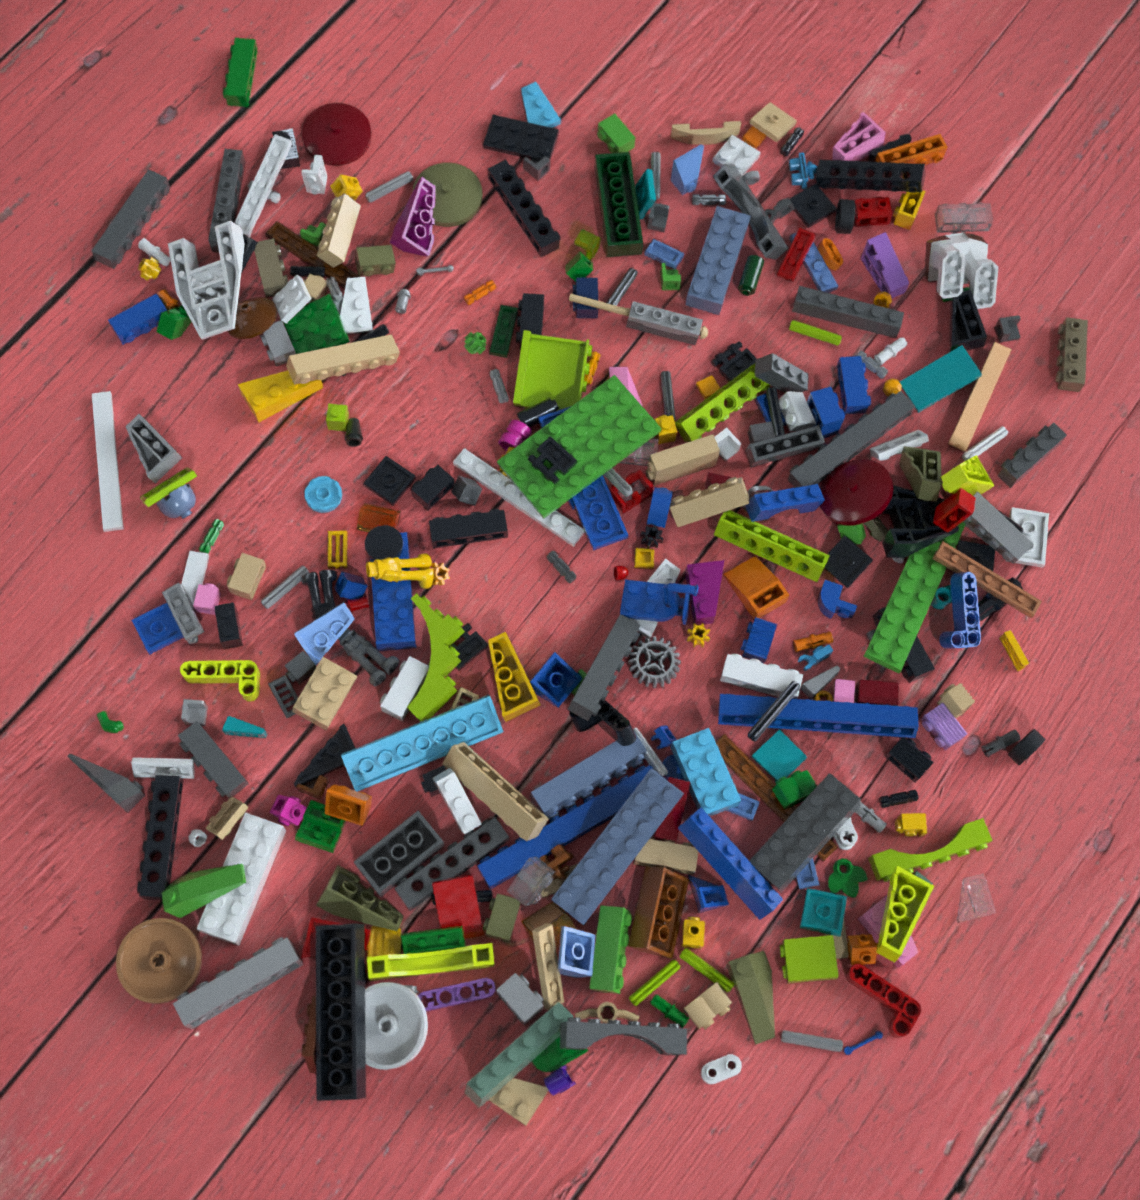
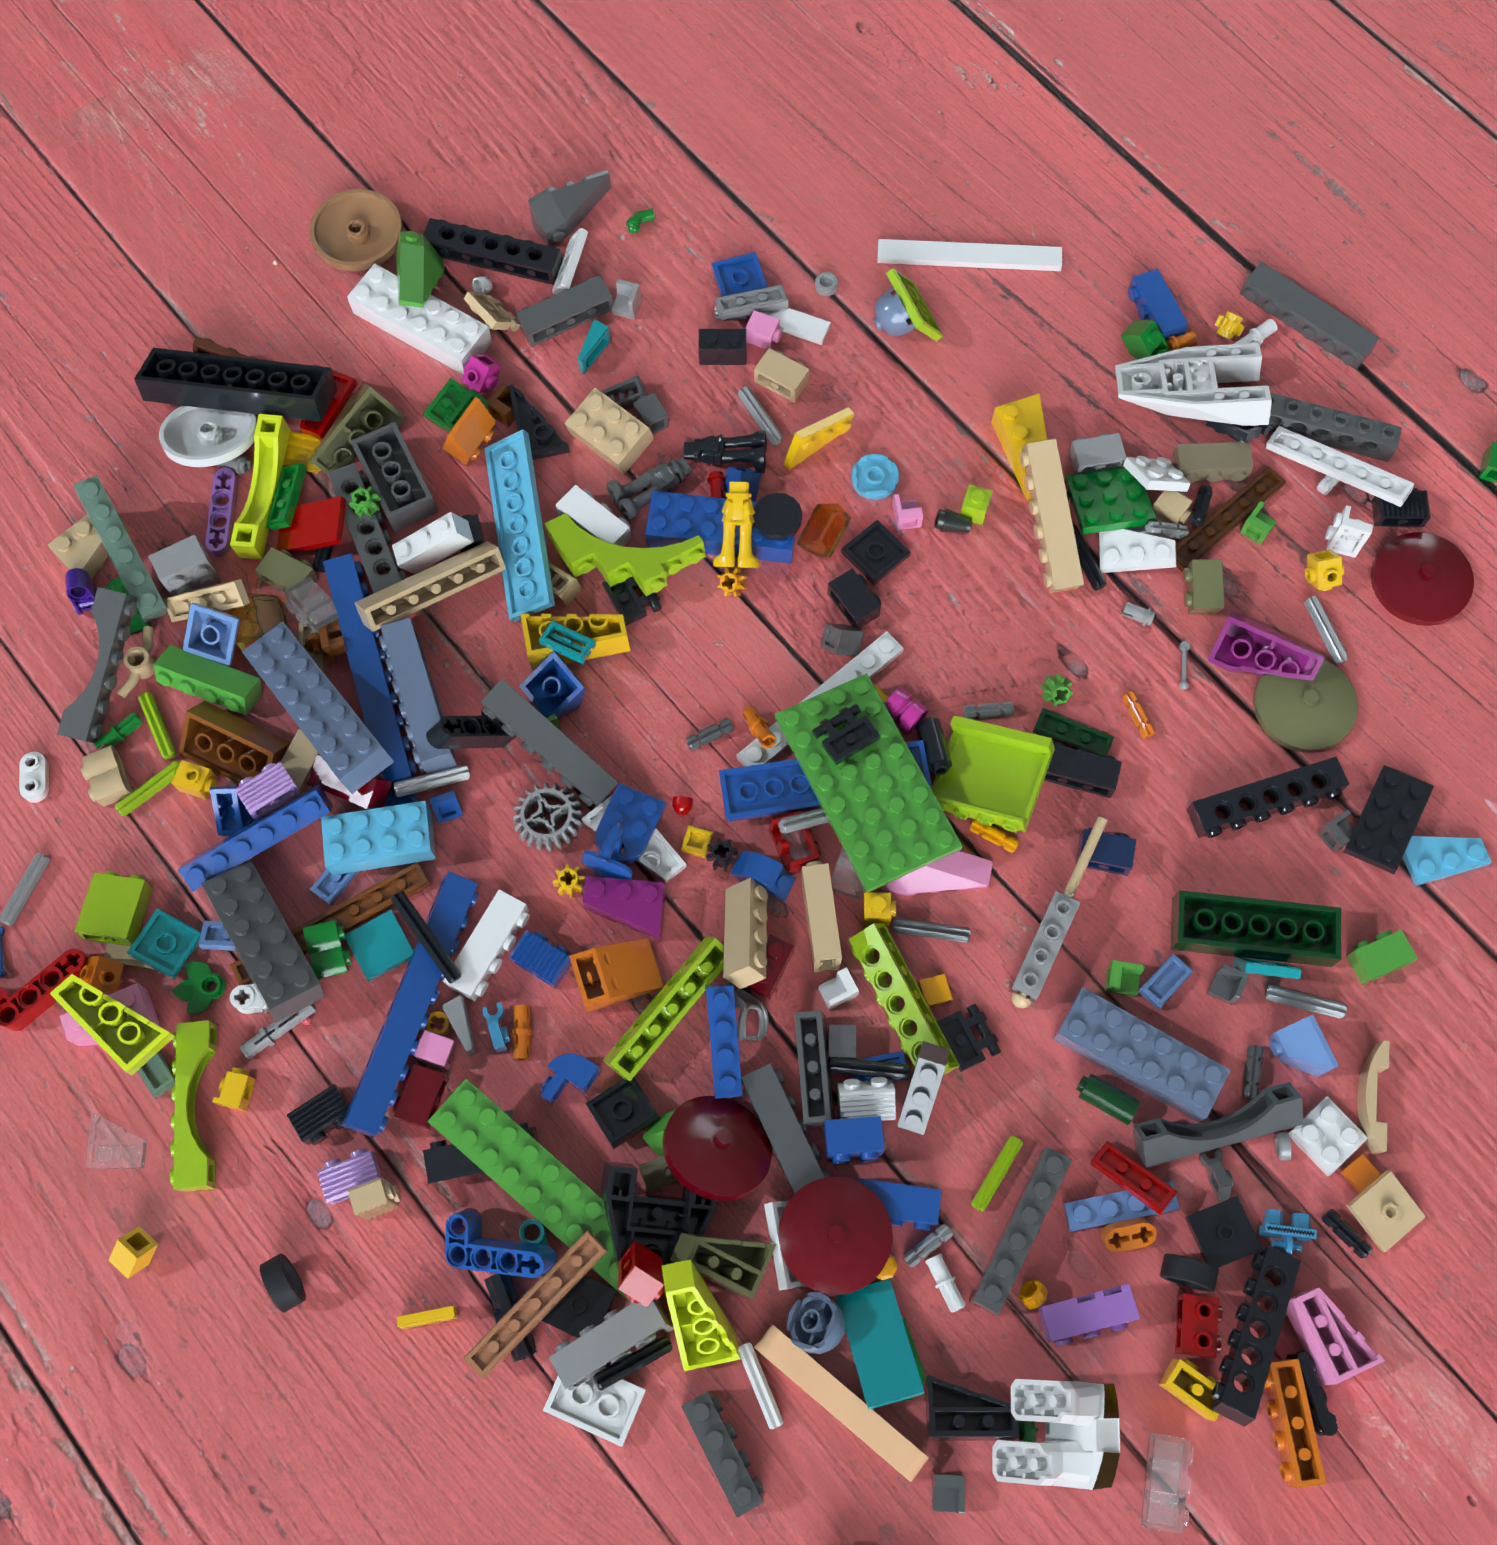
camera: 110 degrees right, 0 degrees up
(151, 562) = (826, 284): none -> light grey tile
(152, 449) = (972, 297): light grey wedge -> none
(211, 536) = (844, 348): green axle -> none
(220, 676) = (665, 331): neon yellow beam -> none
(237, 983) = (305, 296): light grey brick -> none
(253, 317) = (1138, 428): reddish brown dish -> none
(298, 533) = (817, 436): none -> yellow wing
(324, 631) = (685, 440): light blue wing -> none
(337, 564) = (796, 484): yellow tile -> none
(338, 230) = (1256, 546): tan brick -> none
(352, 466) = (906, 513): none -> bright pink panel
(438, 859) = (365, 501): none -> bright green gear
(468, 528) = (785, 627): black brick -> none
(524, 689) = (583, 651): none -> teal tile
(551, 530) = (759, 727): none -> orange pin
(579, 266) = (1157, 853): green panel -> none
(589, 242) = (1194, 871): clear neon green panel -> none
(622, 287) = (1114, 905): dark grey axle -> none
(693, 863) = (266, 790): none -> lavender brick
(755, 993) = (109, 835): olive wedge -> none
(887, 411) = (835, 1235): none -> dark red dish
(898, 798) = (277, 1086): black axle -> none
(942, 414) = (816, 1323): none -> sand blue cylinder
(1001, 743) = (305, 1253): dark grey axle -> none
(1040, 855) = (133, 1252): none -> yellow brick

